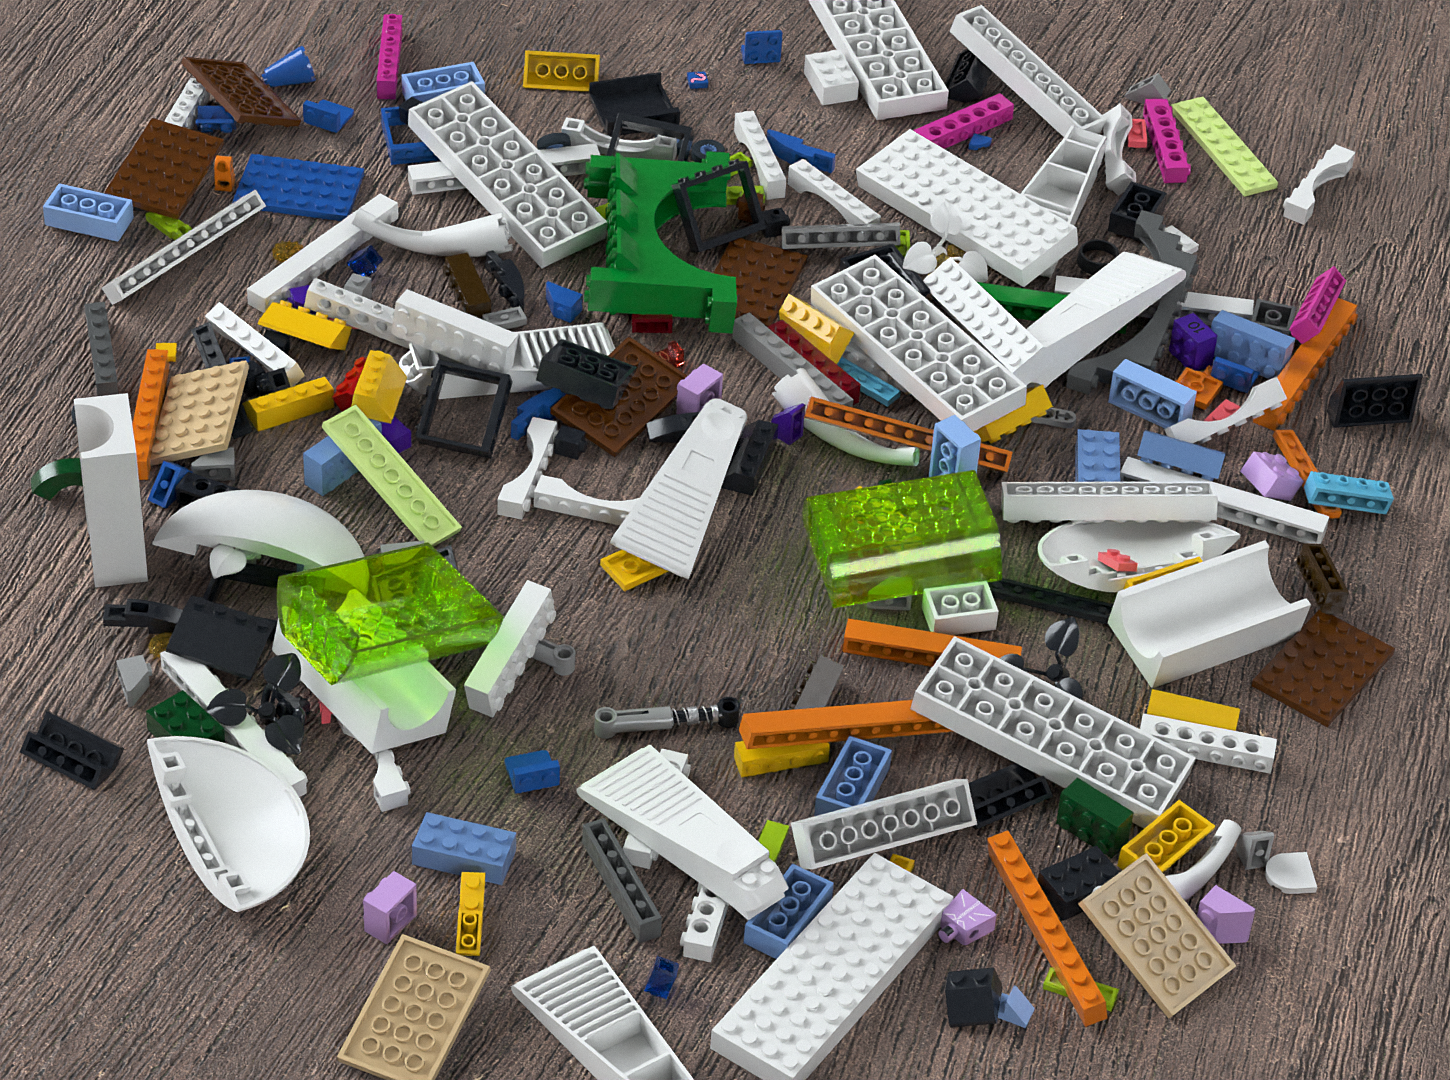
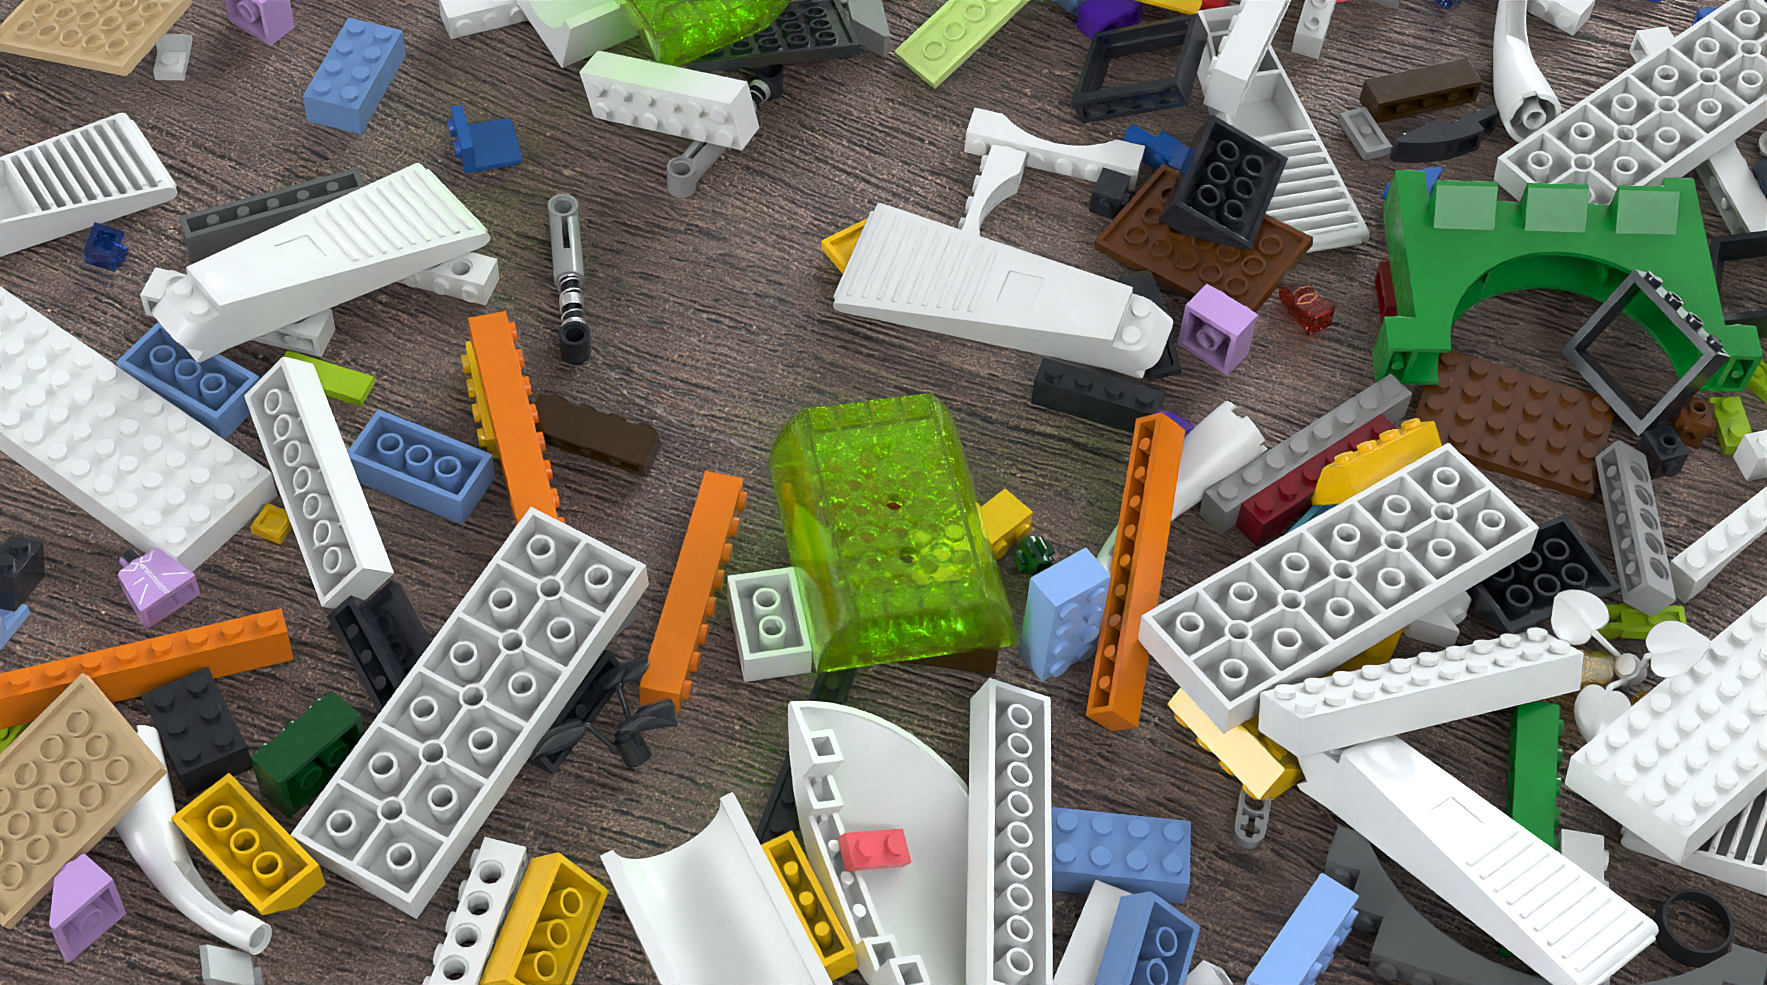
camera: 90 degrees right, 10 degrees up
(470, 914) = (236, 83): yellow slope -> none

